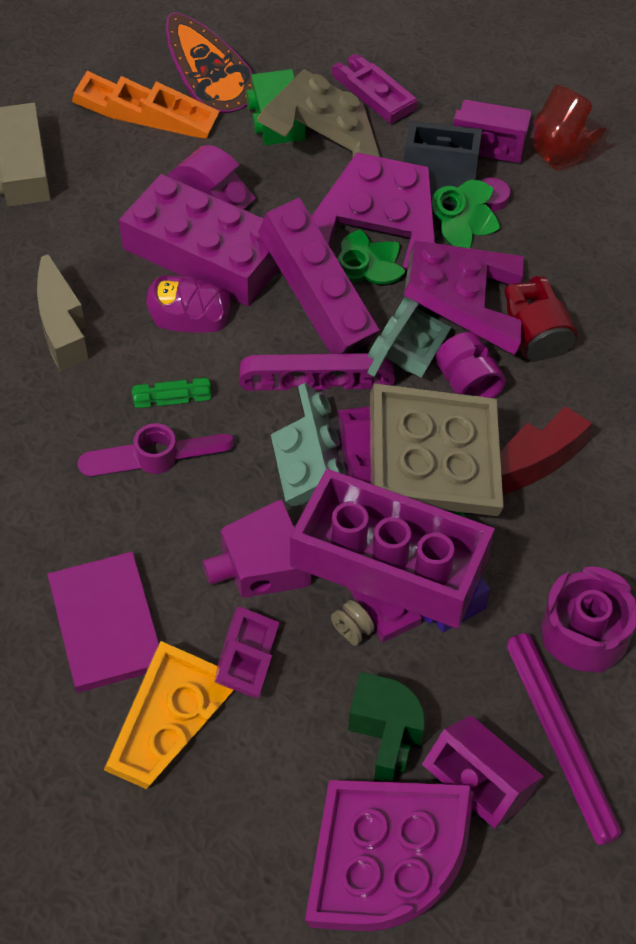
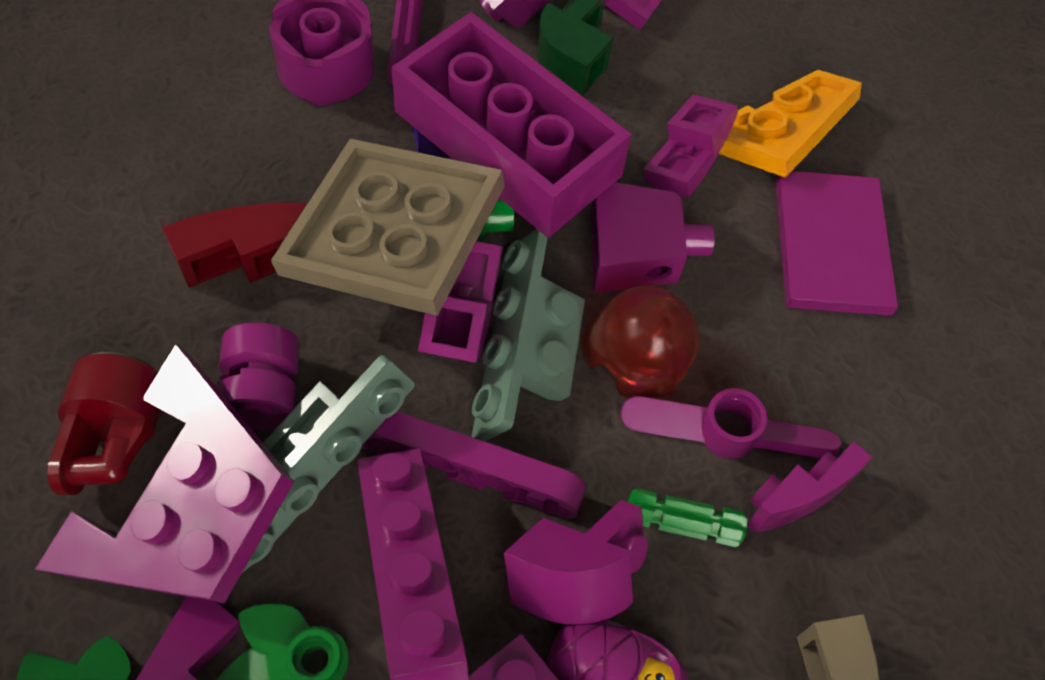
camera: 165 degrees left, 5 degrees up
(102, 415) = (805, 492): none -> magenta slope
(230, 321) = (574, 573): none -> magenta brick
(234, 473) = (634, 345): none -> clear red helmet

